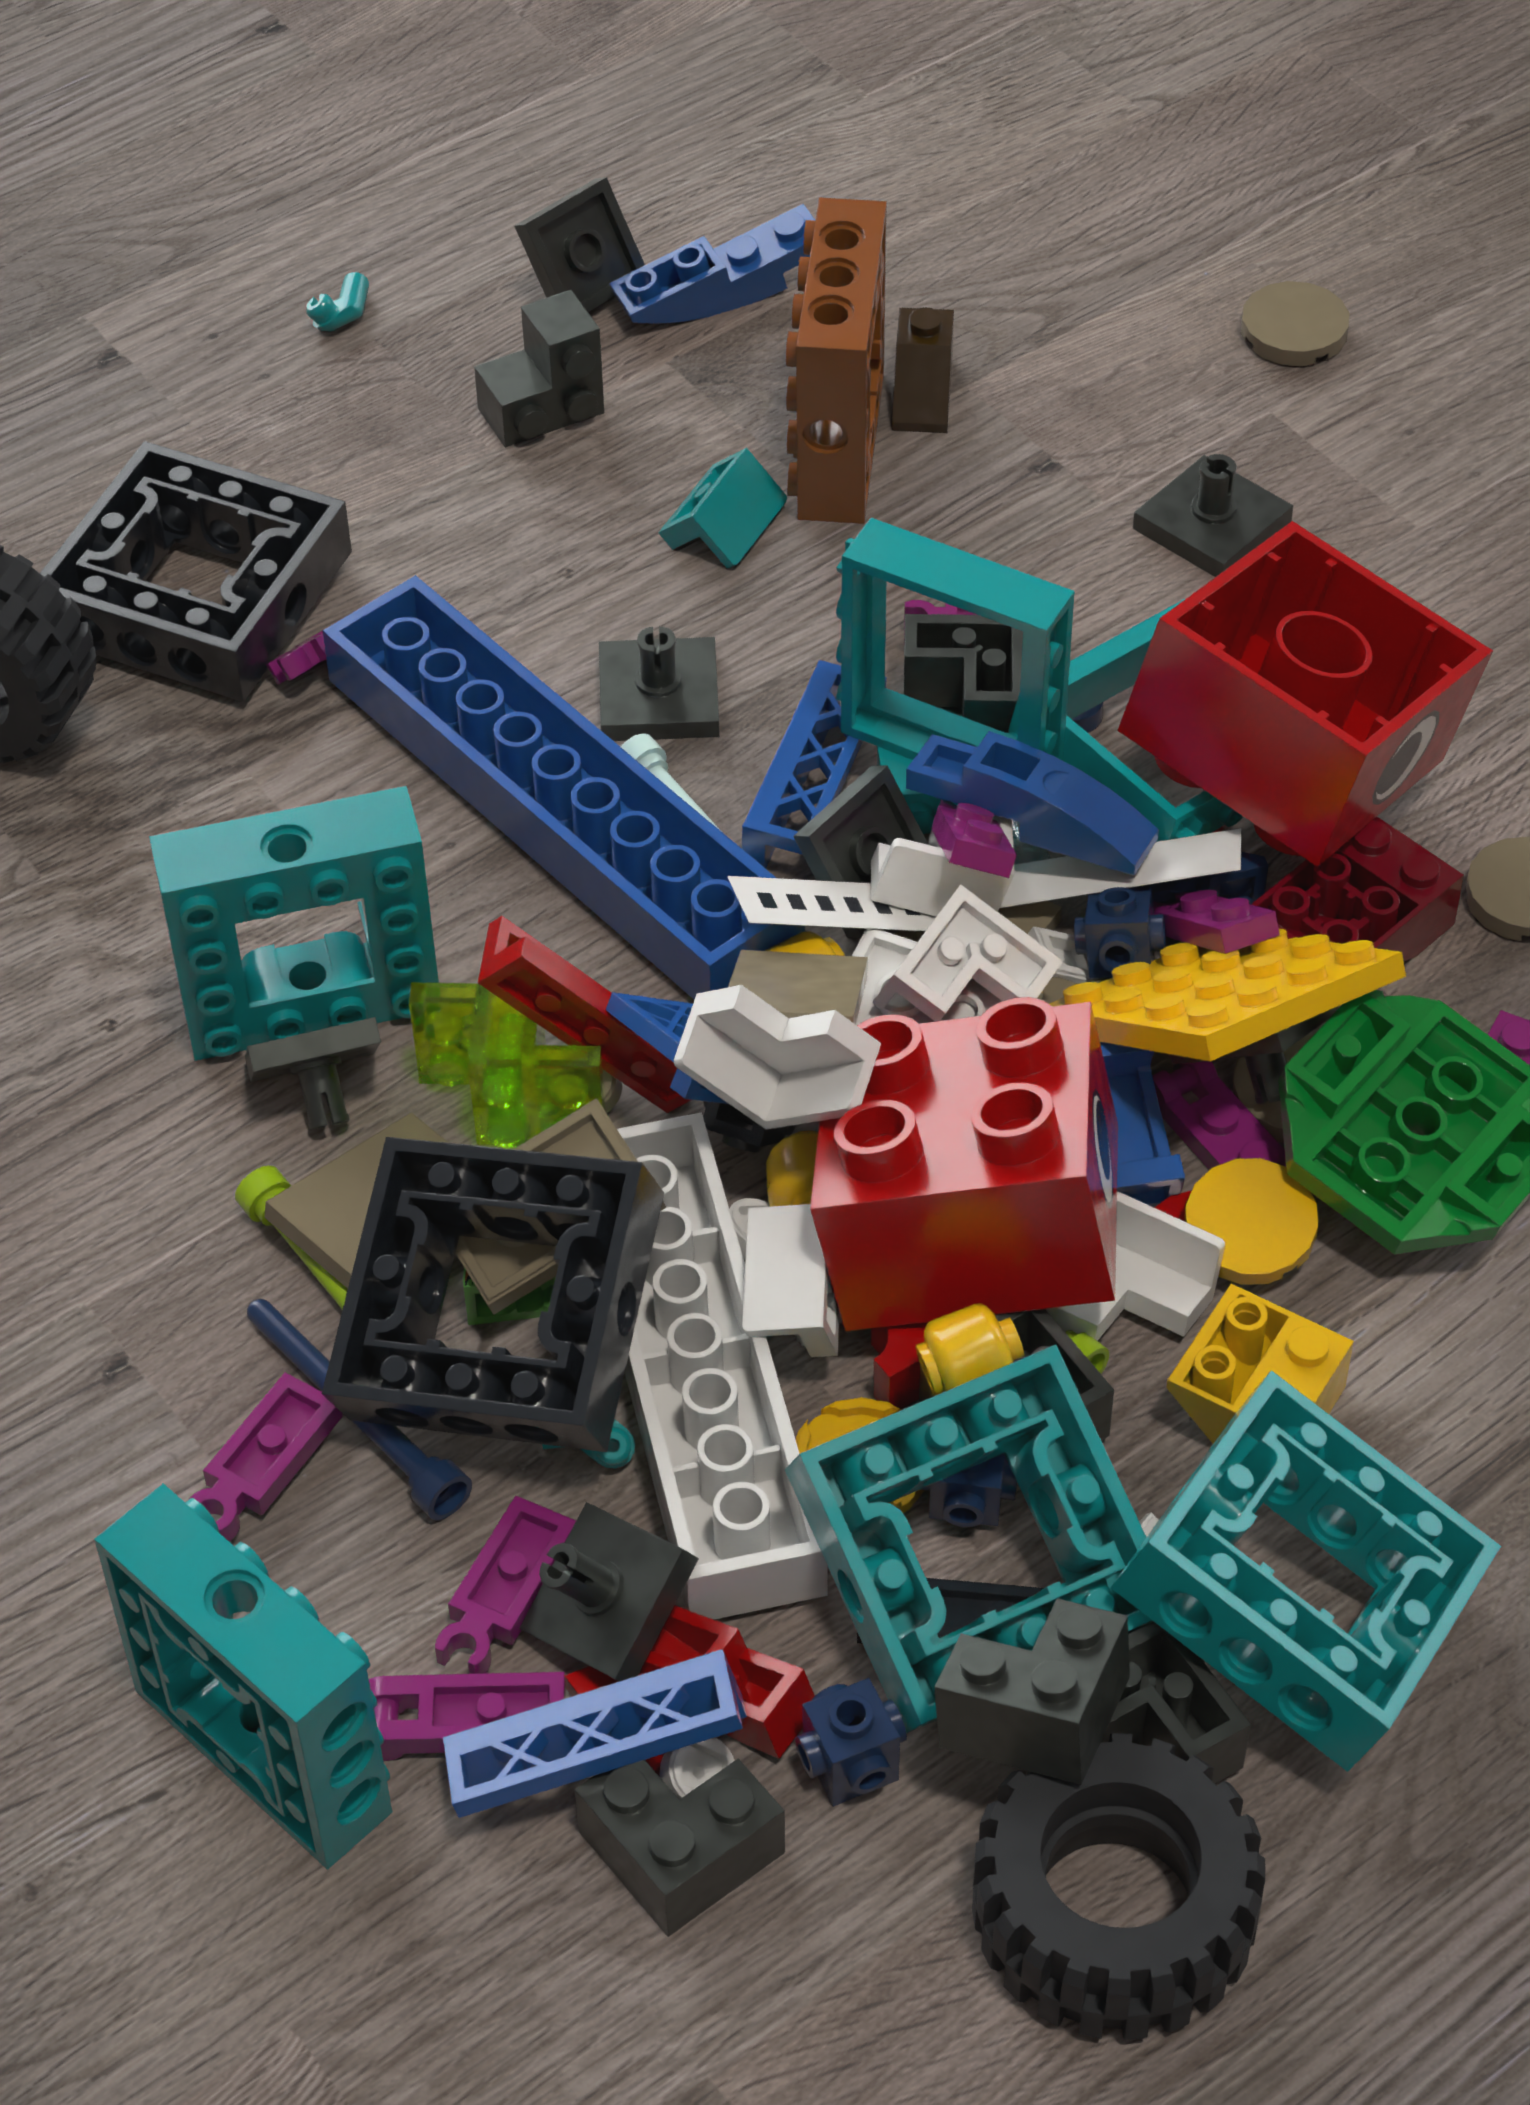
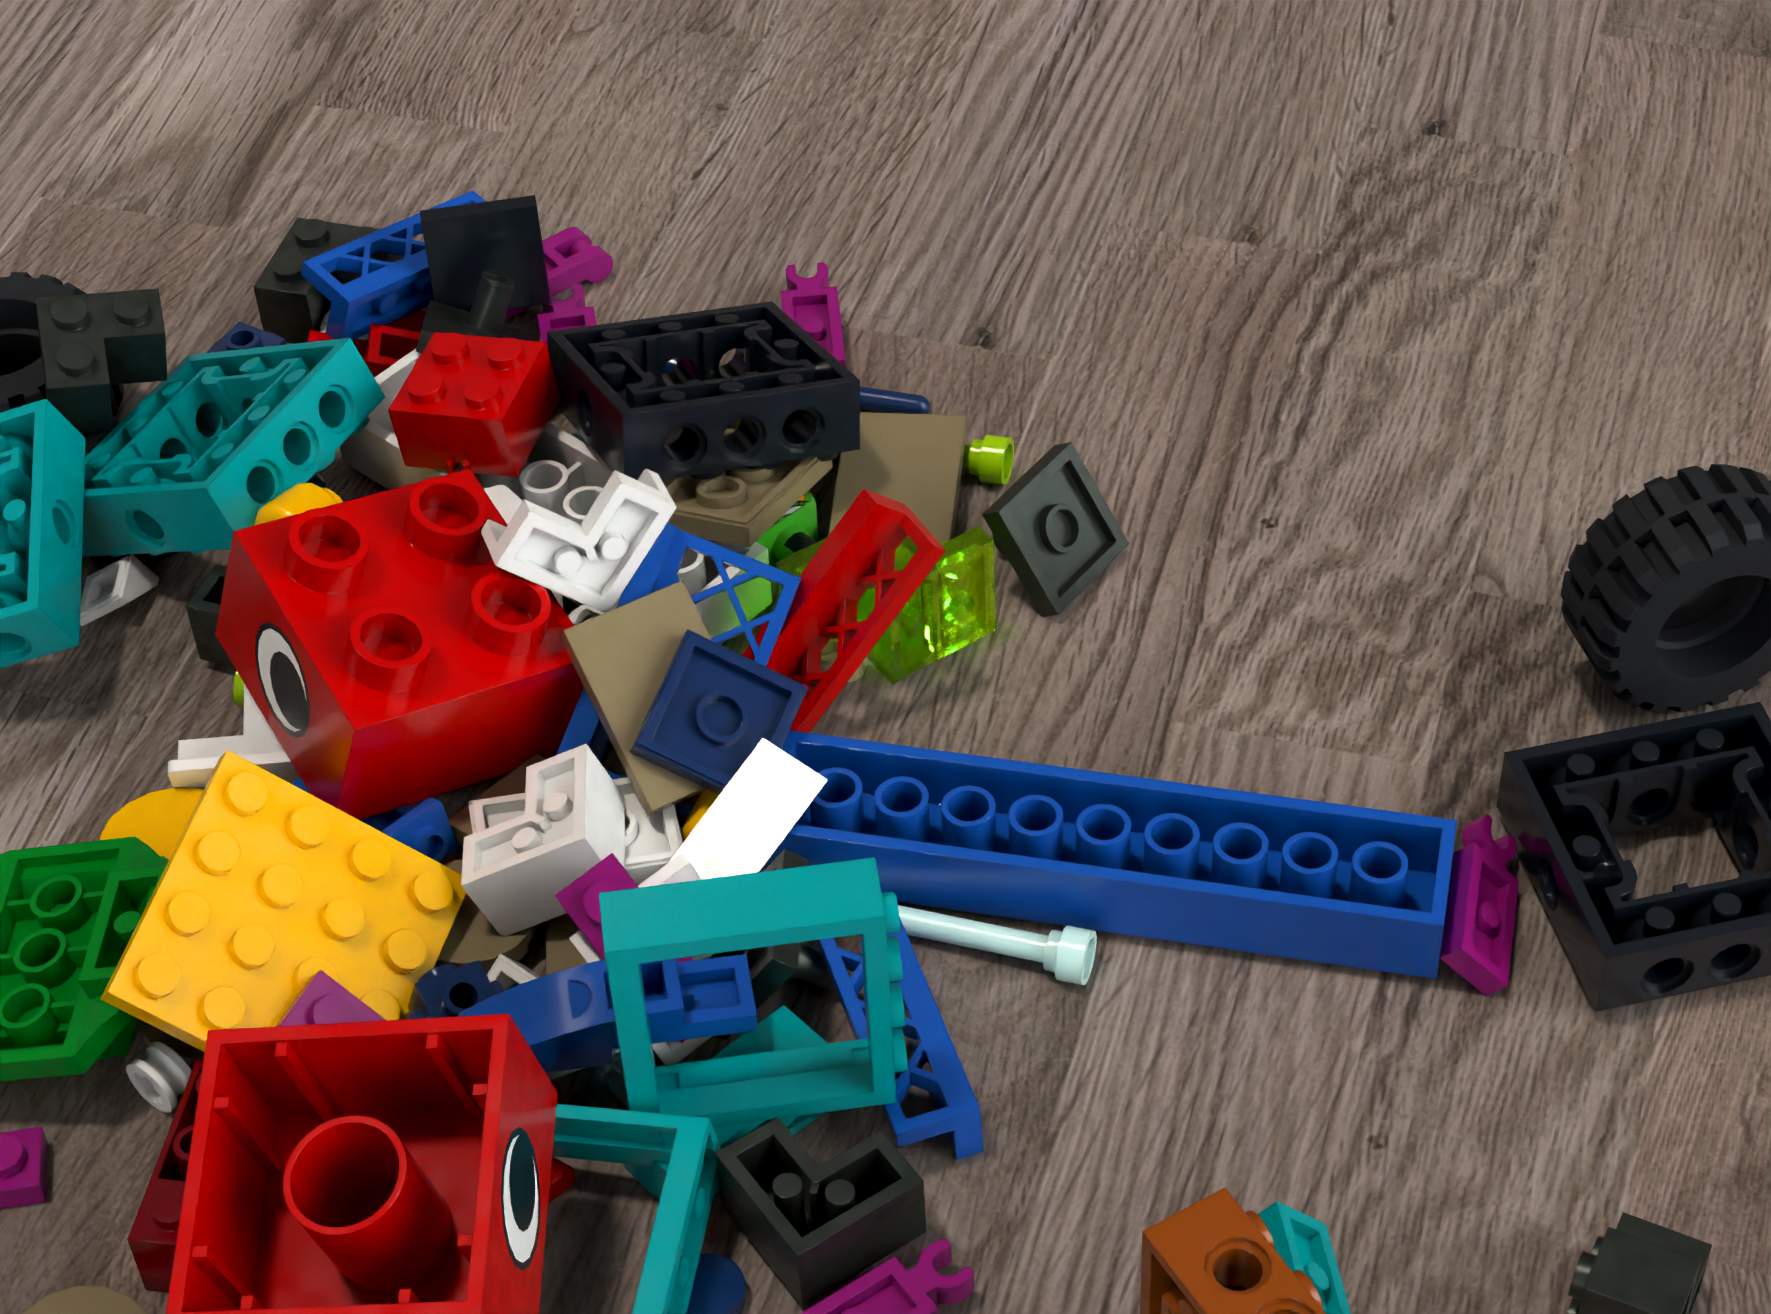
camera: 145 degrees right, 5 degrees down
(220, 1677) = (643, 65): teal brick -> none
(284, 865) = (1151, 462): teal brick -> none
(531, 1639) = (484, 237): none -> black tile
(659, 687) = (1141, 1053): pearl dark grey tile -> none
(712, 1393) = (475, 404): none -> red brick
(768, 955) = (715, 713): none -> dark blue tile
(1239, 1349) = (79, 722): yellow slope -> none

